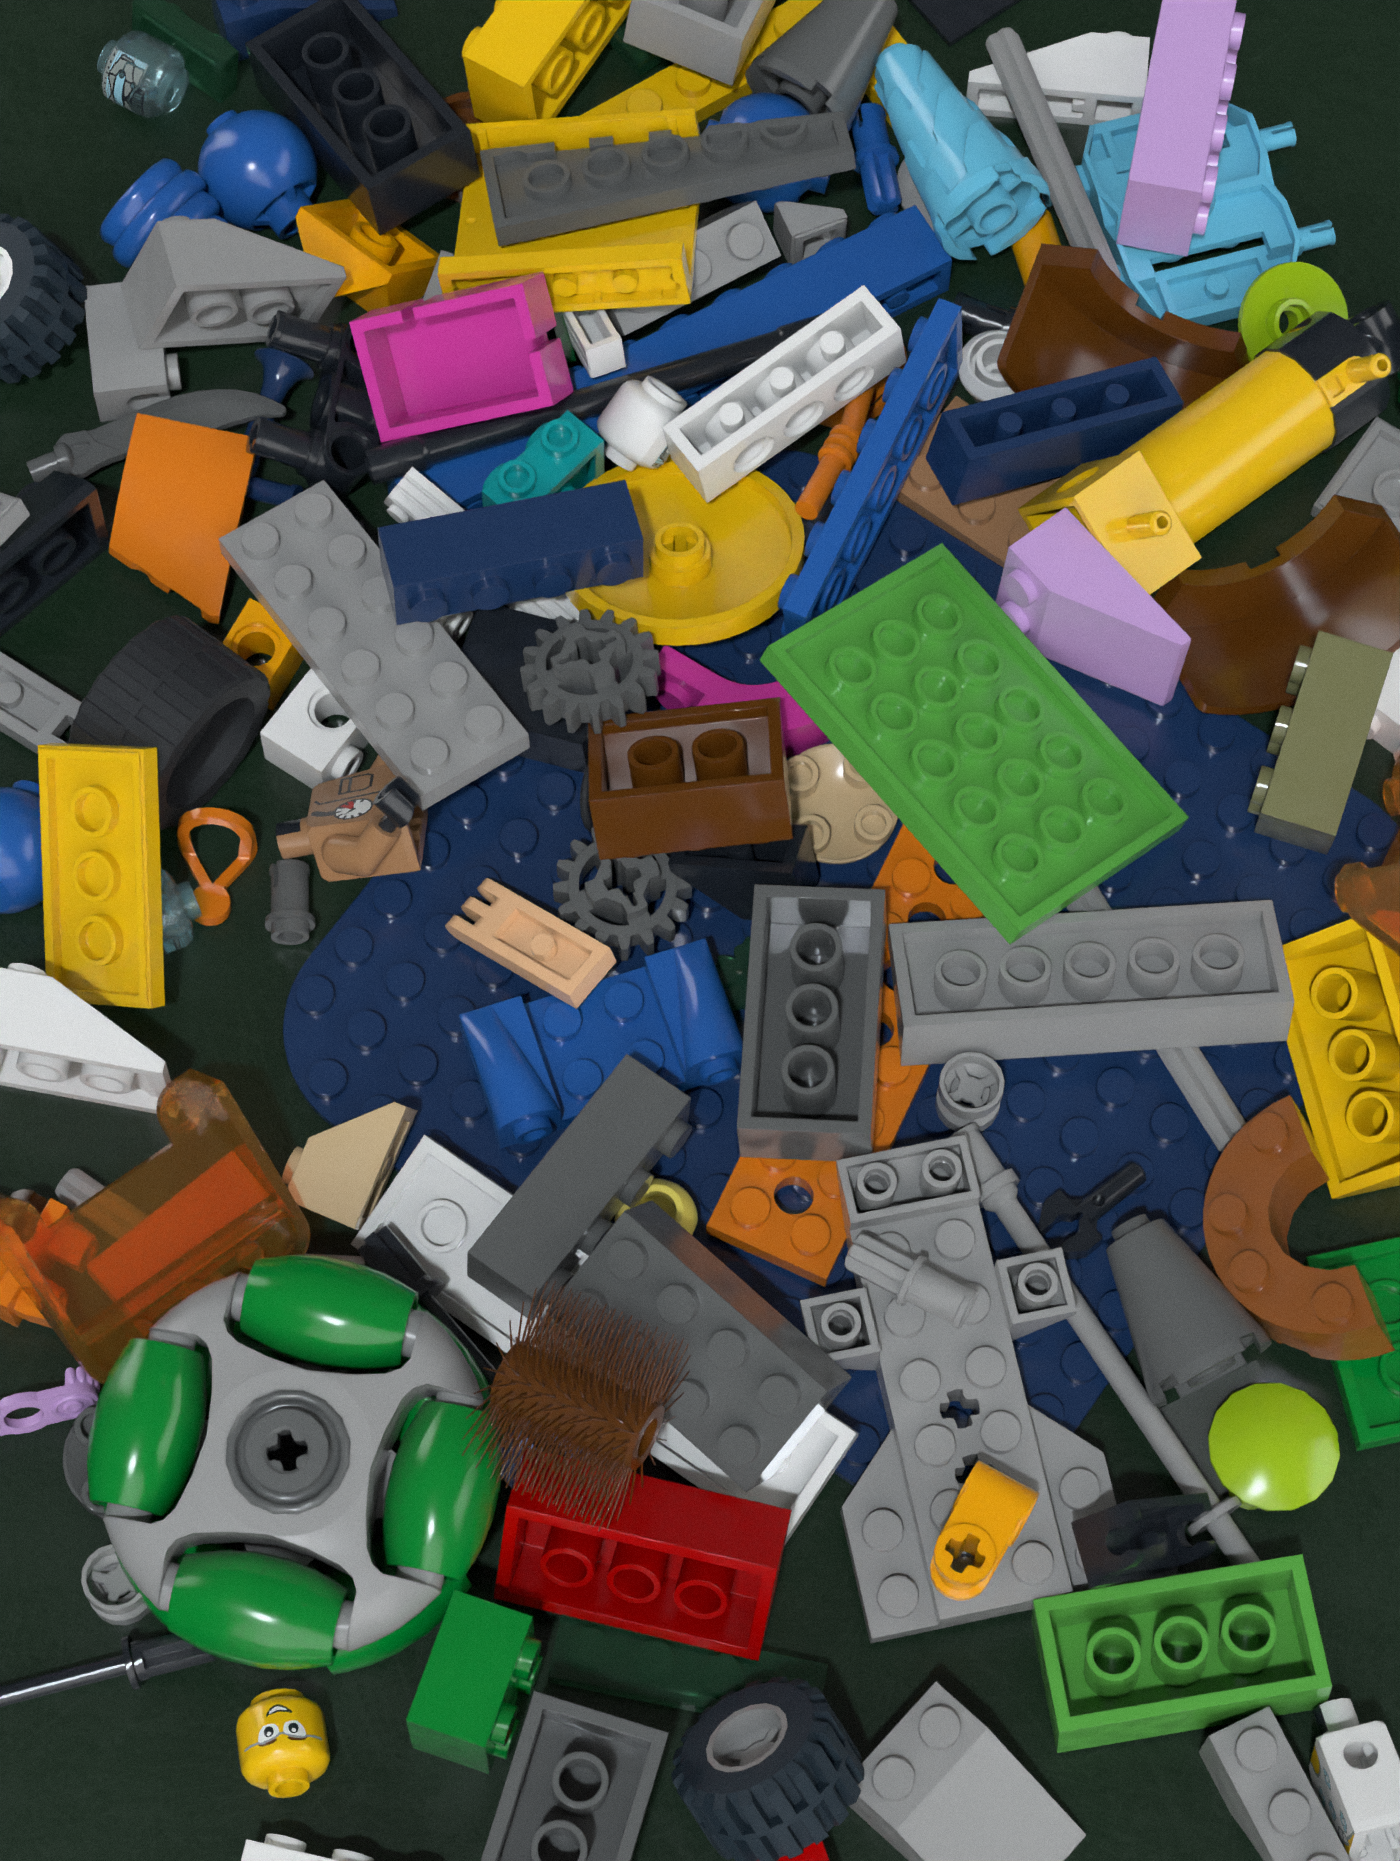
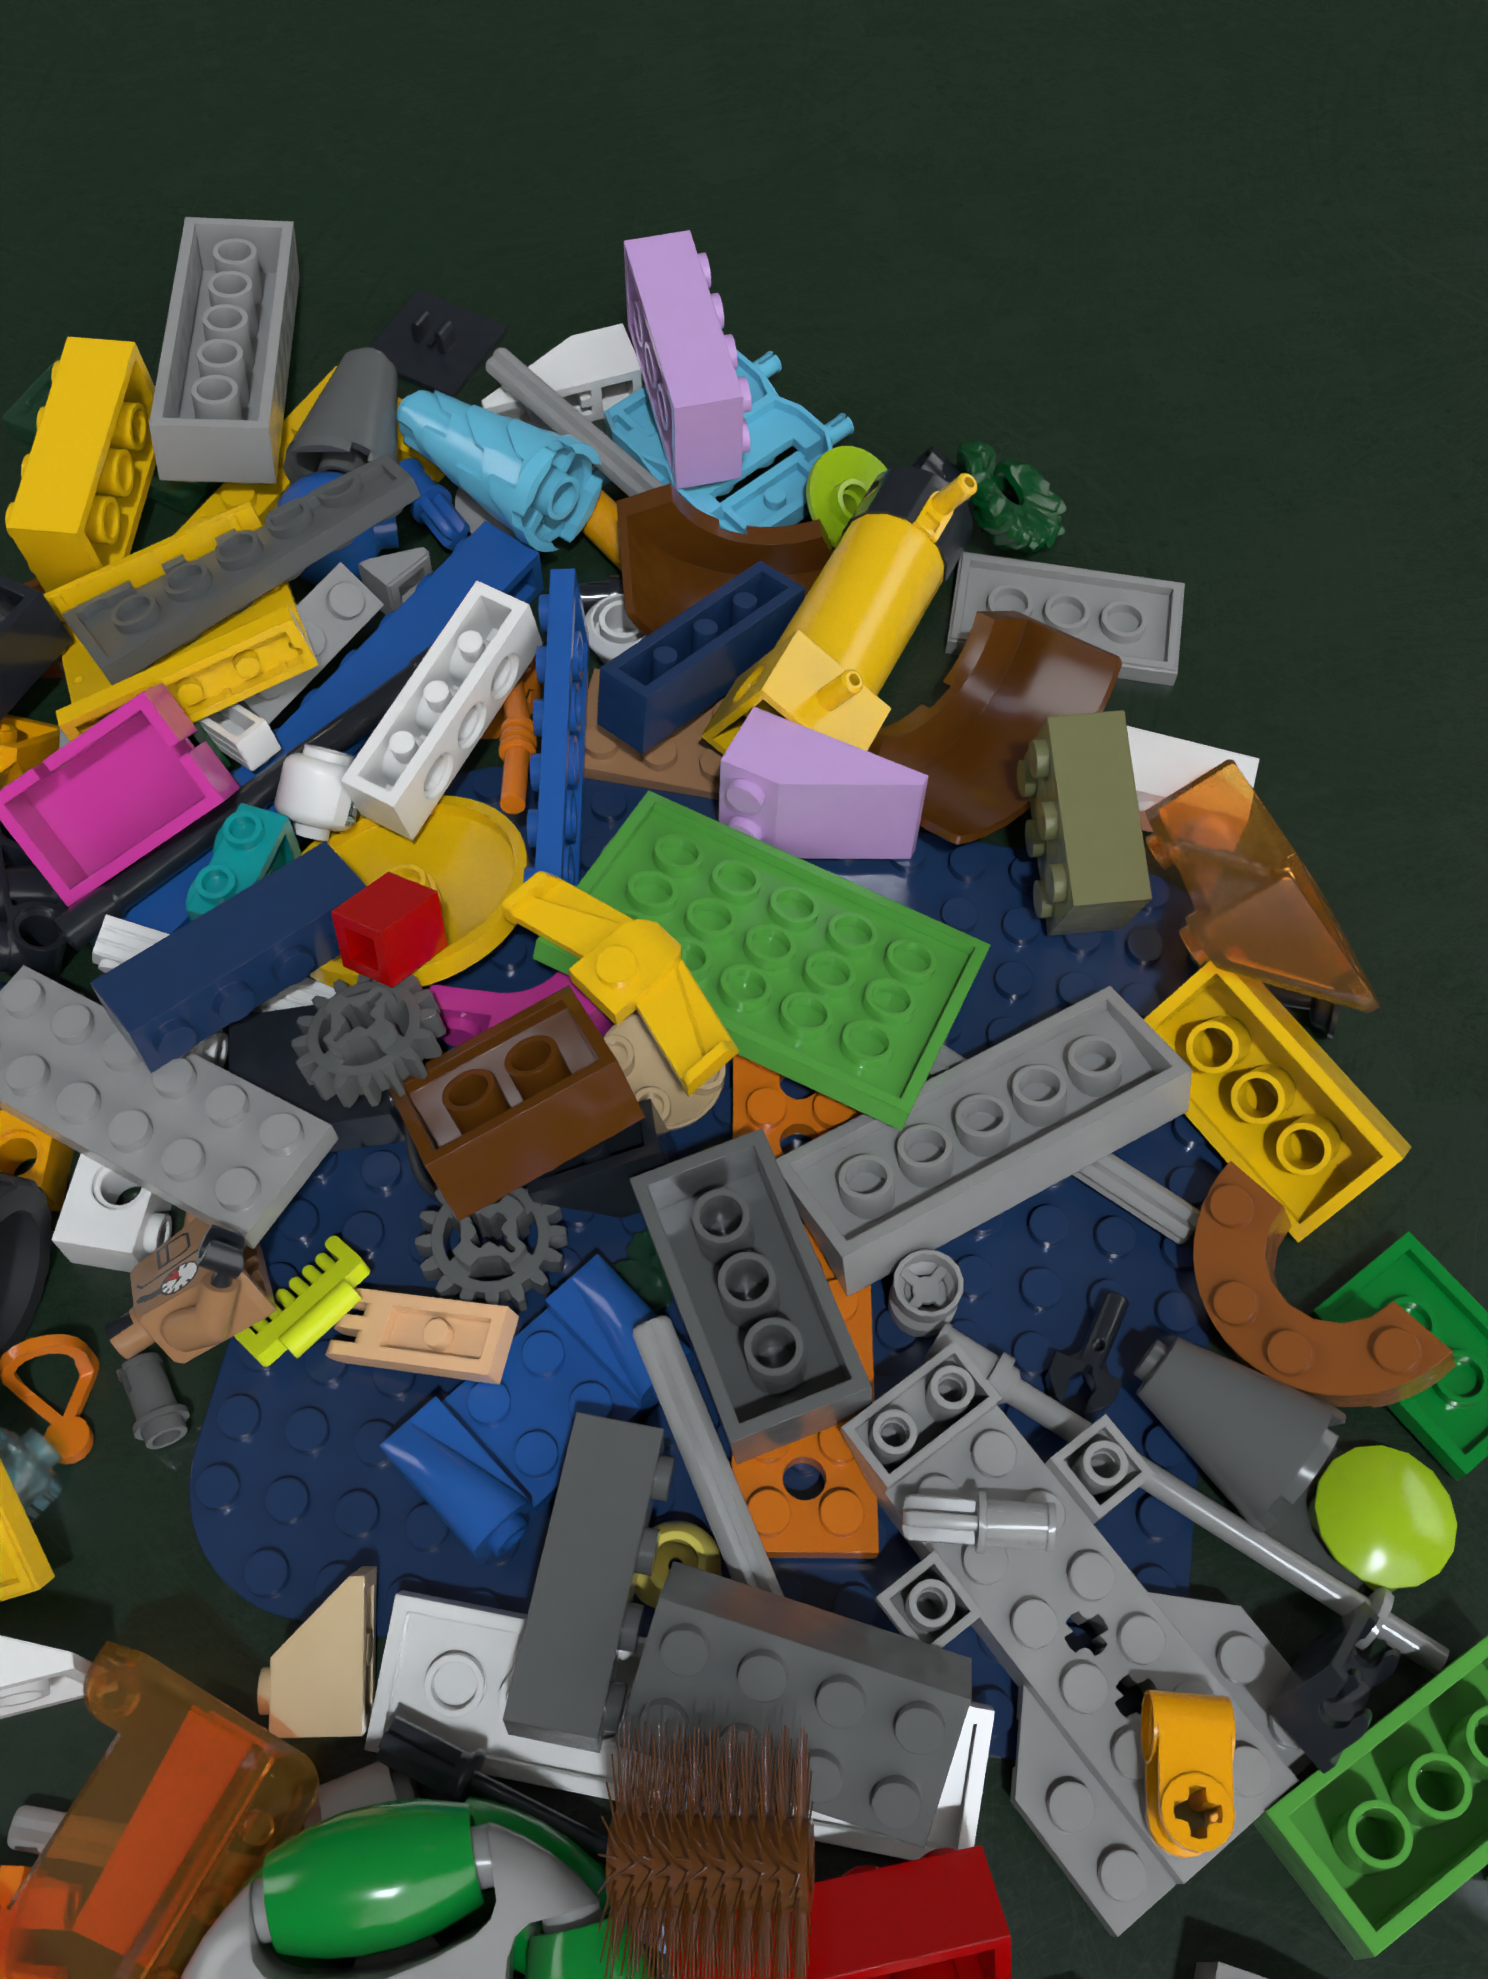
camera: 25 degrees left, 5 degrees down
(450, 884) = (313, 1310): none -> neon yellow piece
(647, 583) = (389, 929): none -> red brick
(716, 1131) = (704, 1455): none -> light grey axle
(833, 704) = (628, 969): none -> yellow plate

